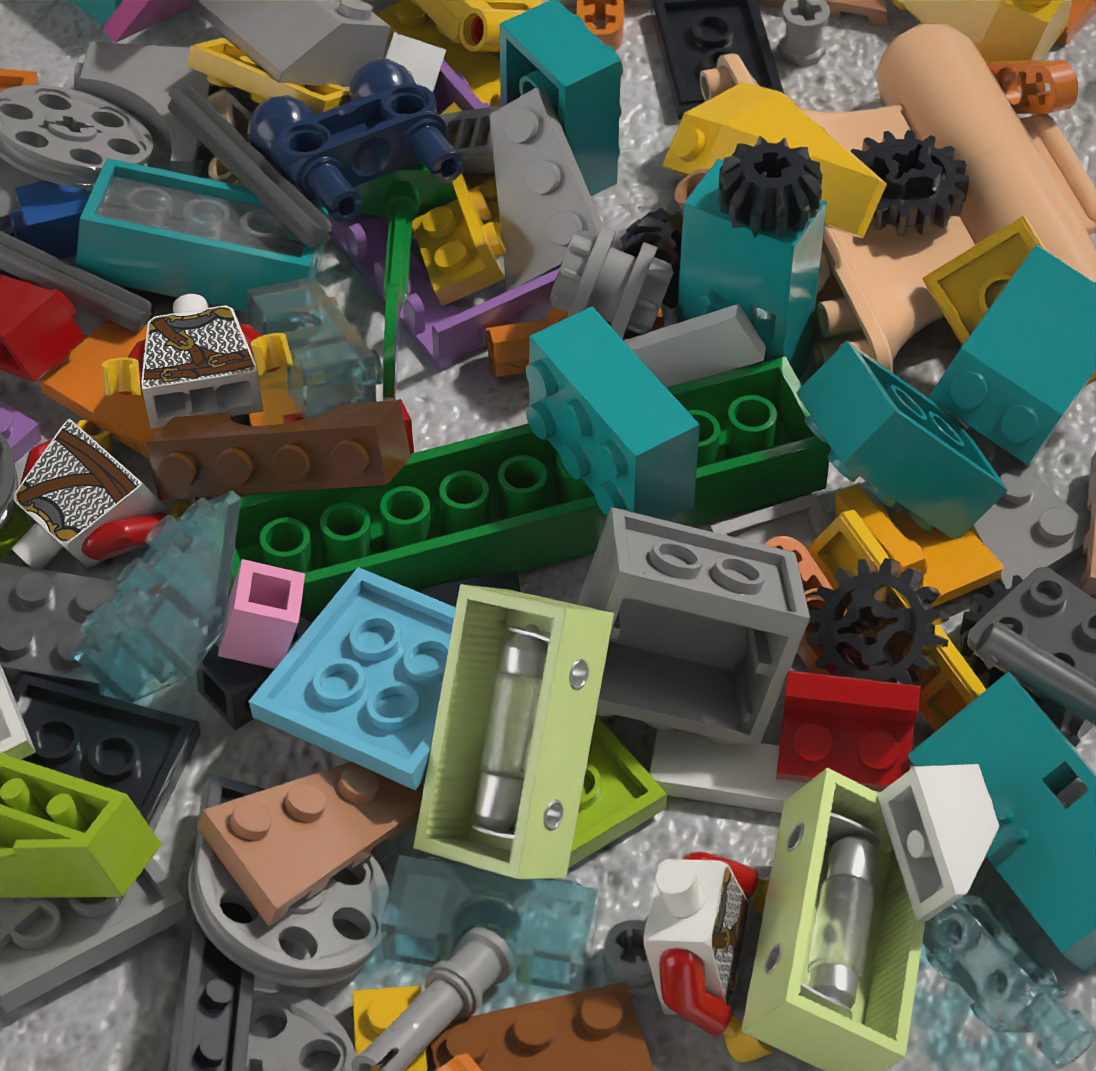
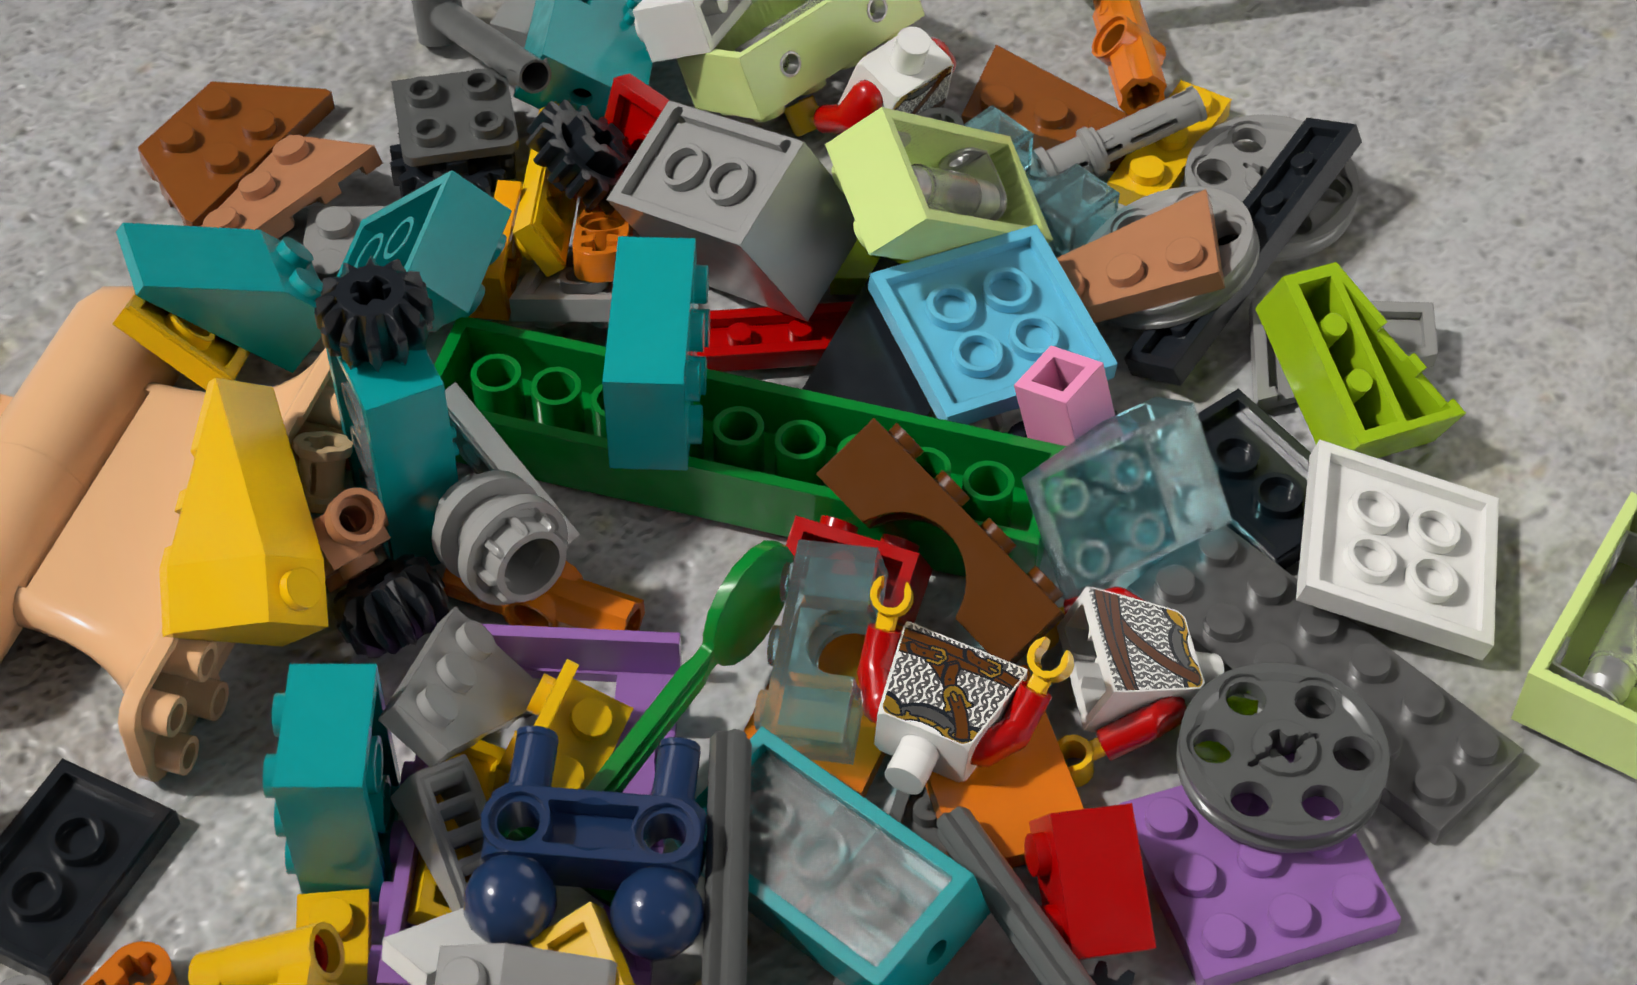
camera: 145 degrees left, 0 degrees up
(920, 181) = (131, 468): black gear -> none

